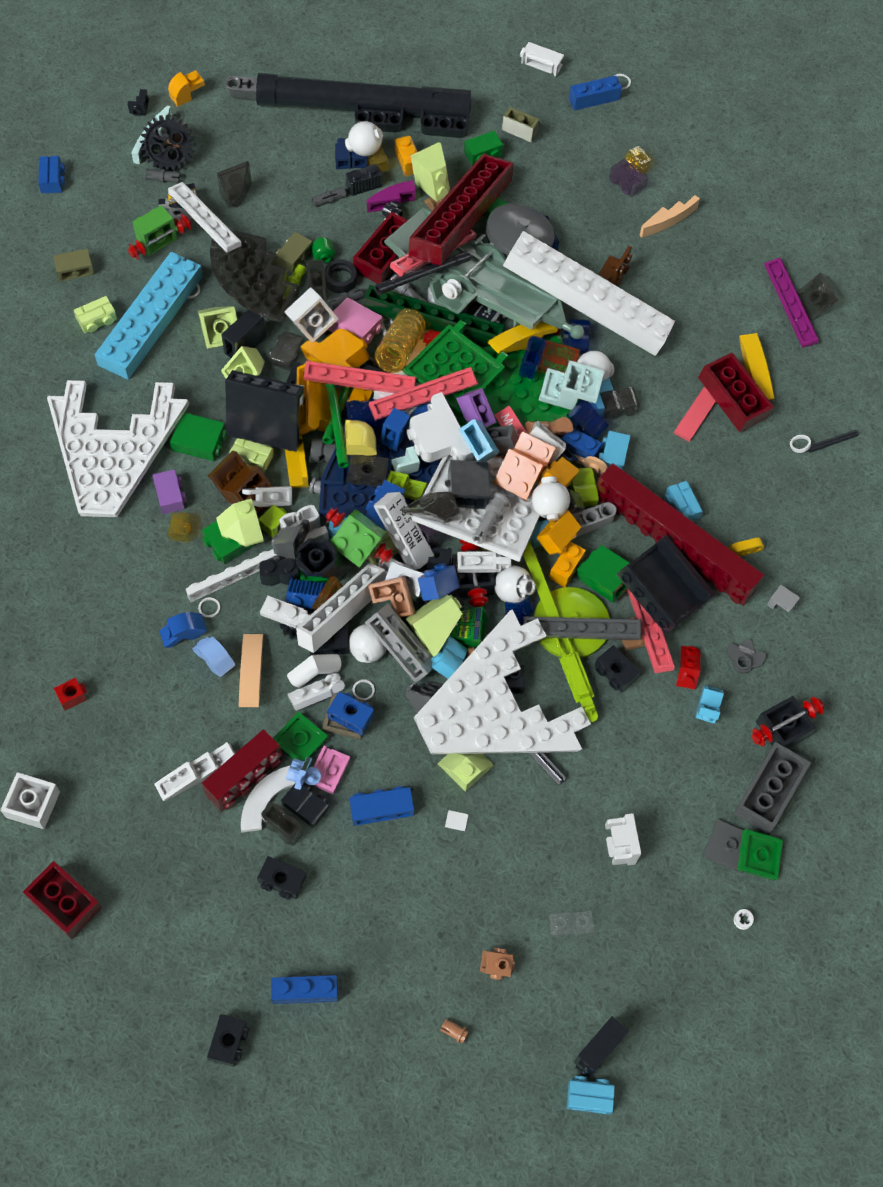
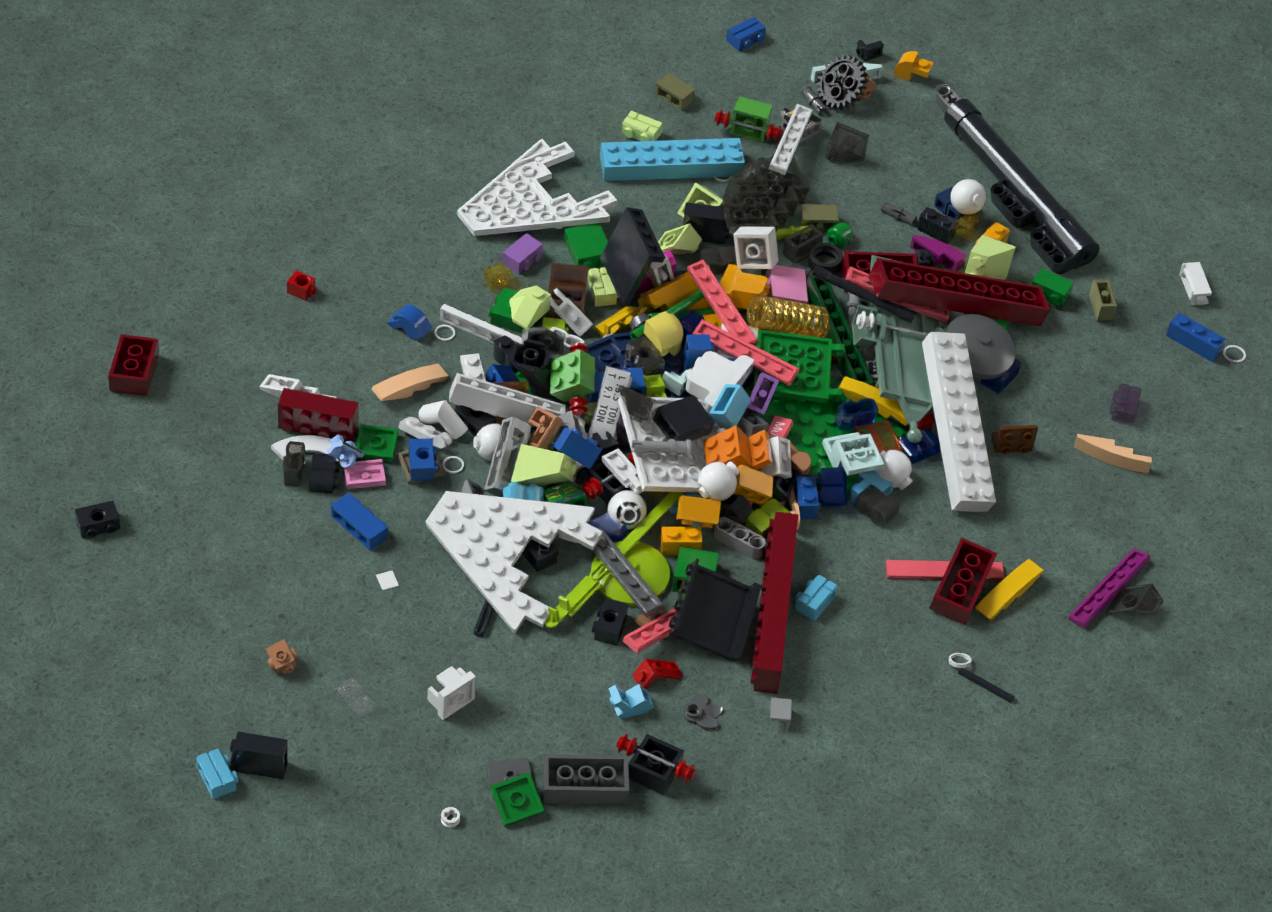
camera: 55 degrees right, 15 degrees down
(30, 800) = (196, 306): white brick -> none
(214, 655) = (402, 352): light blue brick -> none
(274, 868) = (251, 488): black brick -> none
(304, 989) = (170, 545): blue brick -> none
(454, 1031) = (207, 660): nougat pin -> none
(465, 768) = (437, 563): yellowish green slope -> none
(615, 449) = (823, 525): medium azure brick -> none
(638, 159) = (1150, 405): clear yellow brick -> none
(747, 547) = (811, 663): yellow beam -> none

